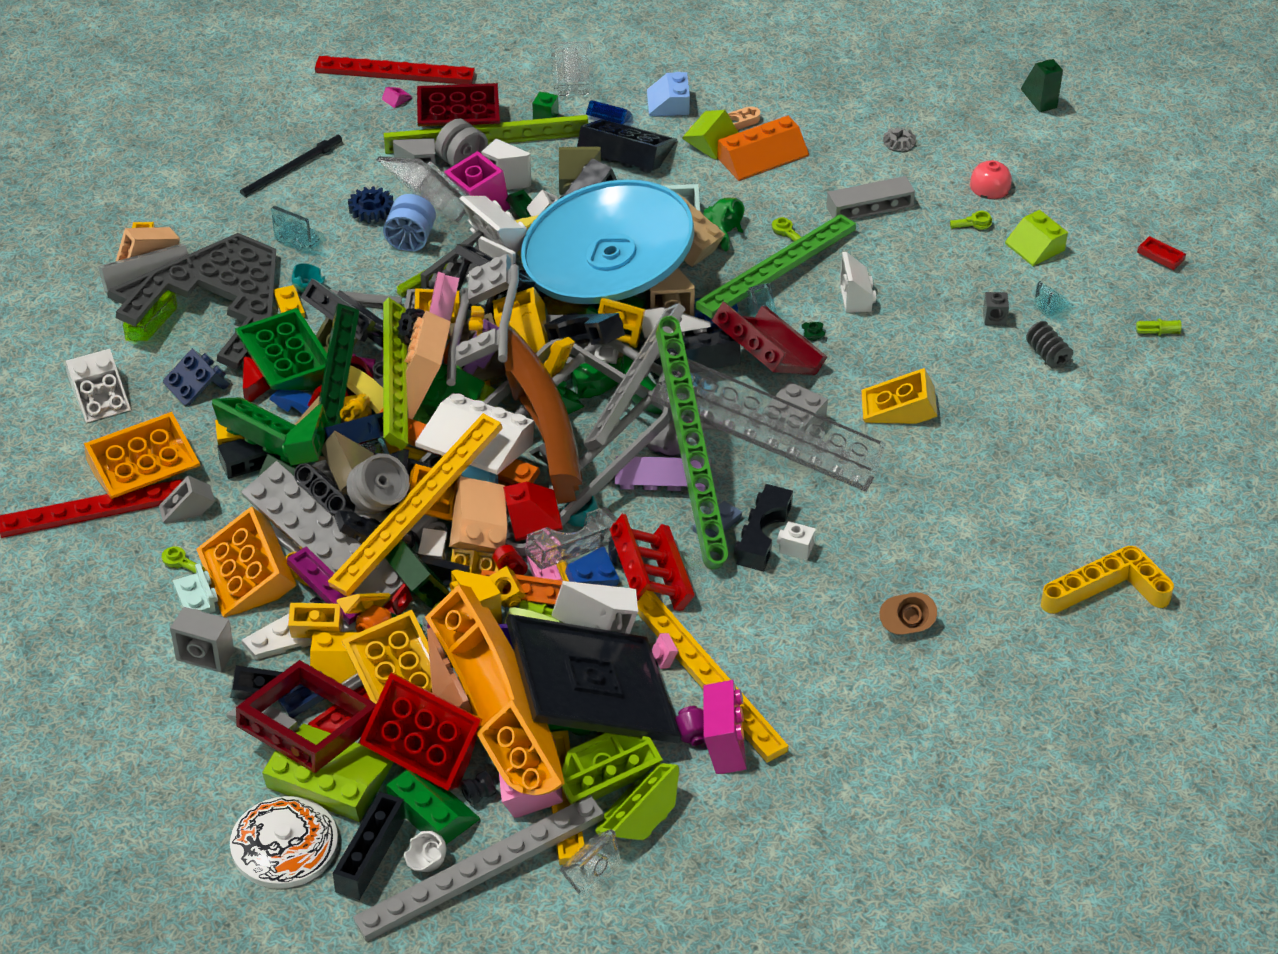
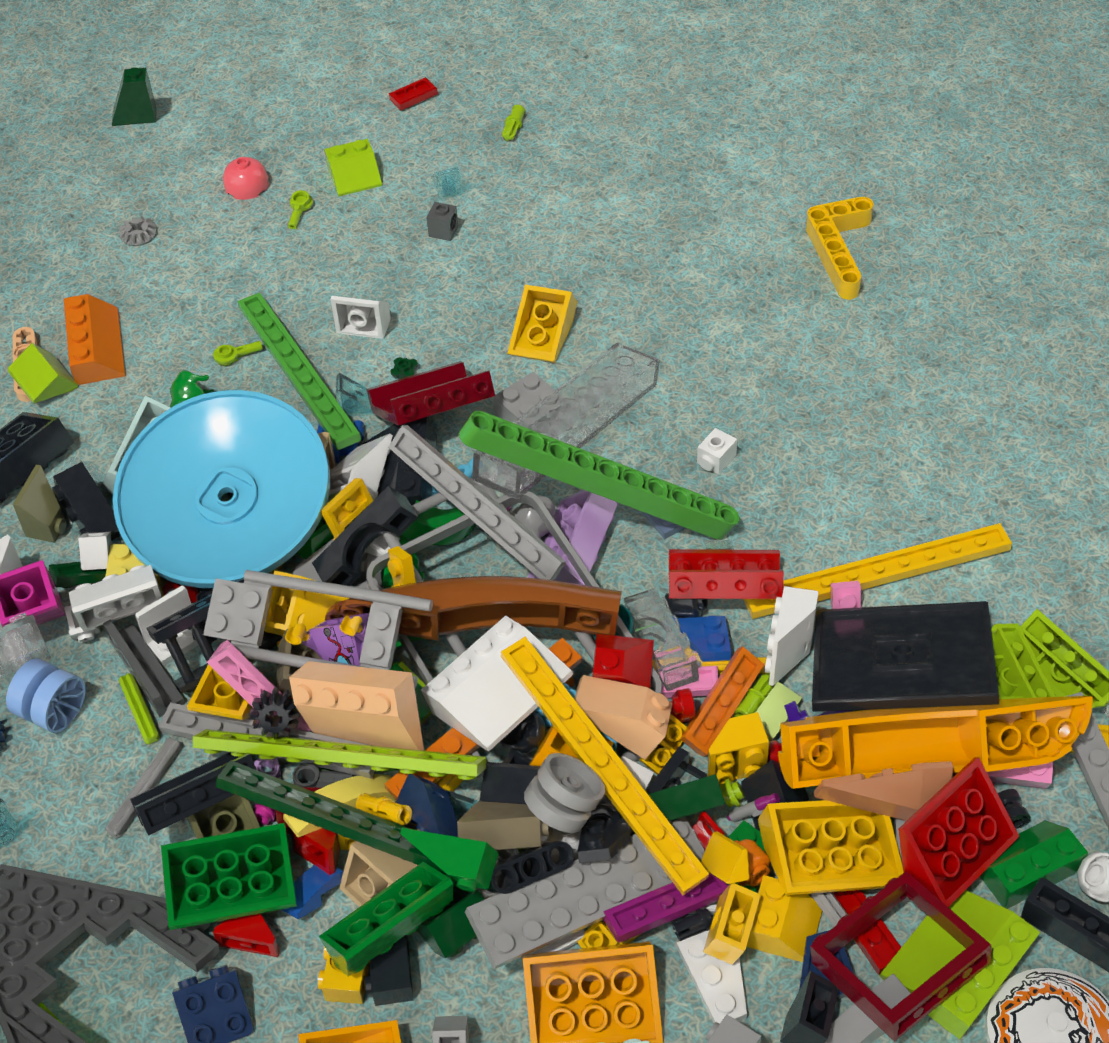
camera: 70 degrees left, 5 degrees up
(288, 299) = (113, 869): yellow plate -> none
(303, 274) = (85, 836): teal hair -> none
(504, 577) = (715, 713): yellow brick -> none
(691, 725) = (956, 591): magenta head -> none
(724, 726) = (974, 560): dark pink wedge -> none
(771, 507) = (659, 460): black arch -> none
(871, 198) = (225, 273): light grey brick -> none
(908, 613) = (849, 386): medium nougat piece -> none
(1049, 344) = (512, 197): dark grey piece -> none

